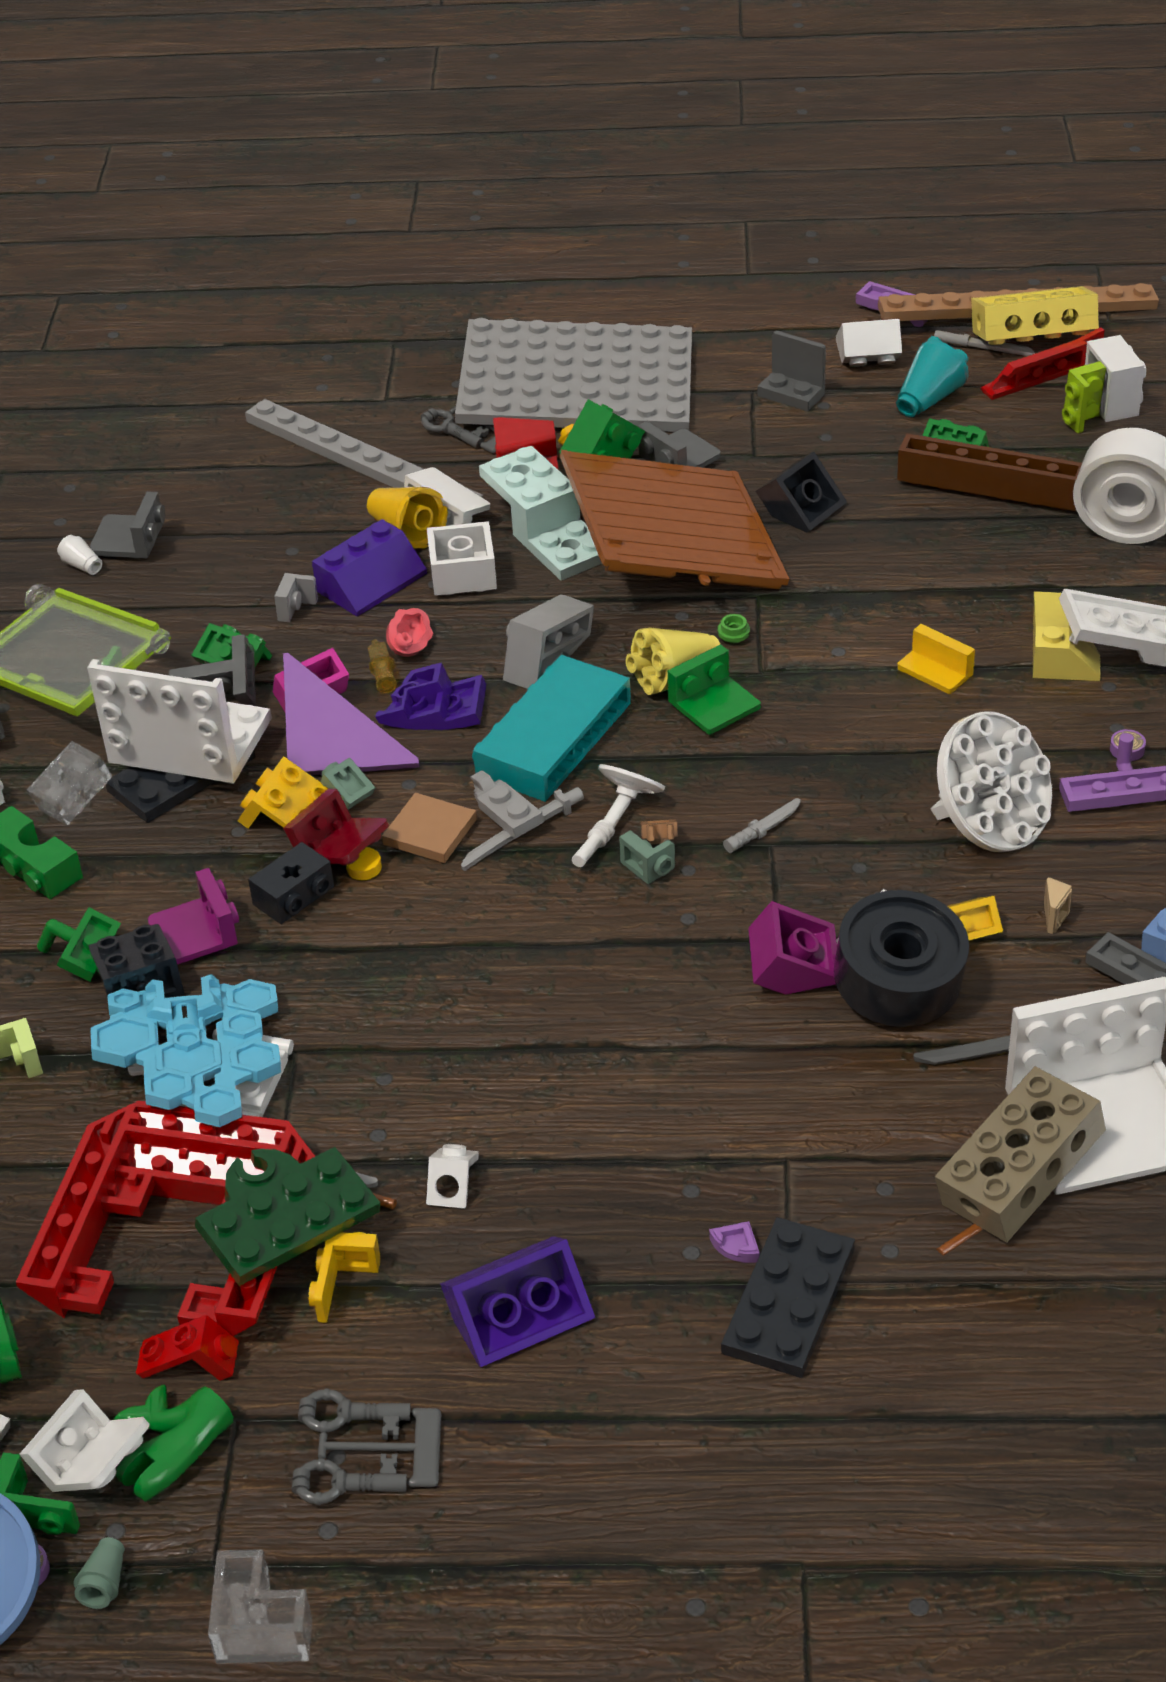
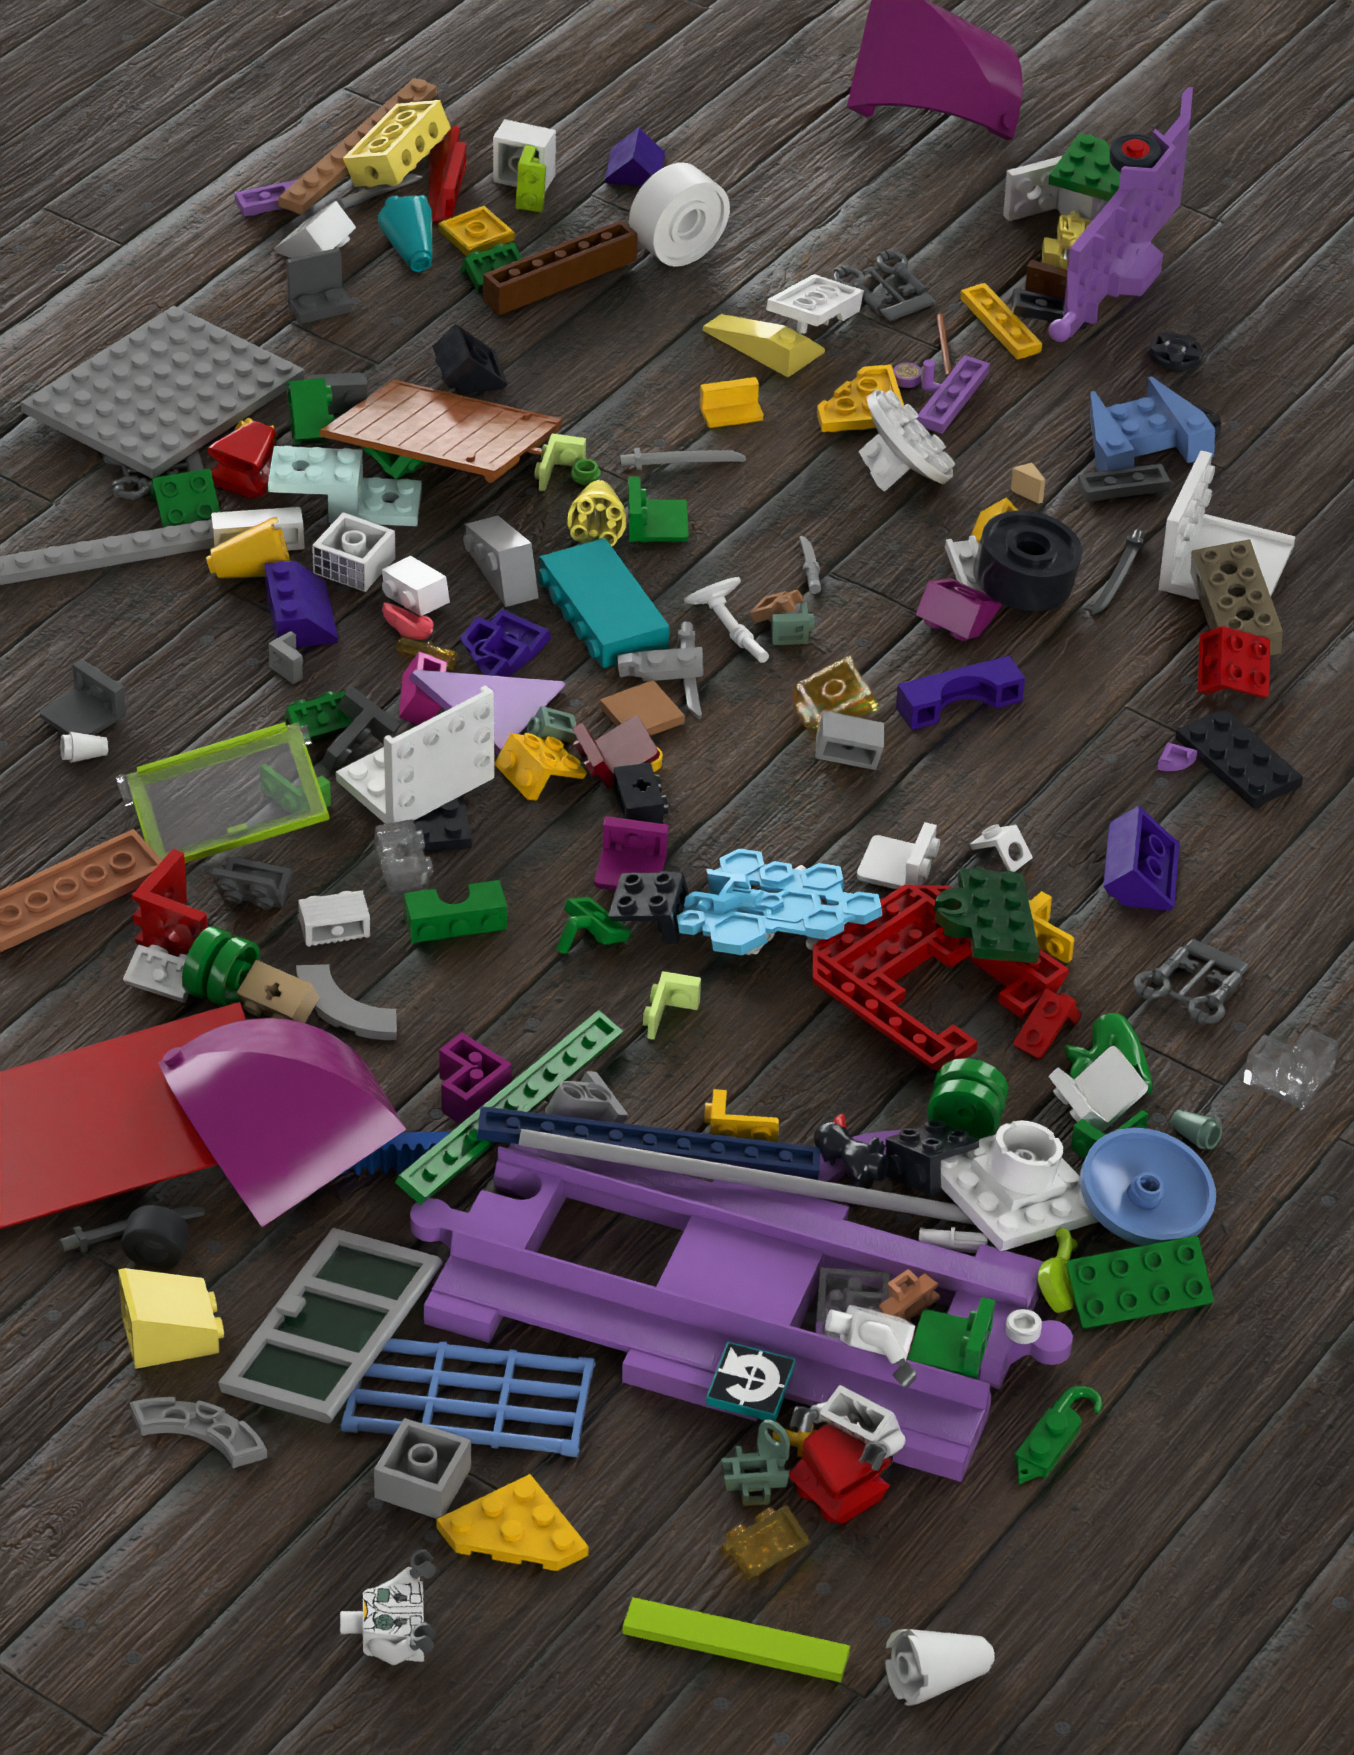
camera: 60 degrees left, 0 degrees up
(355, 1106) = (898, 862): none -> white bracket
(446, 447) = (185, 497): none -> green bracket
(454, 612) = (415, 586): none -> white brick
(502, 977) = (849, 740): none -> light grey brick
(569, 936) = (833, 690): none -> clear yellow slope
(625, 1000) = (992, 682): none -> dark purple arch
(723, 598) = (560, 451): none -> yellowish green bracket
(791, 649) = (679, 457): none -> light grey sword
(923, 1210) = (1233, 662): none -> red bracket
(997, 413) = (476, 231): none -> yellow tile
(1065, 737) = (849, 405): none -> yellow plate

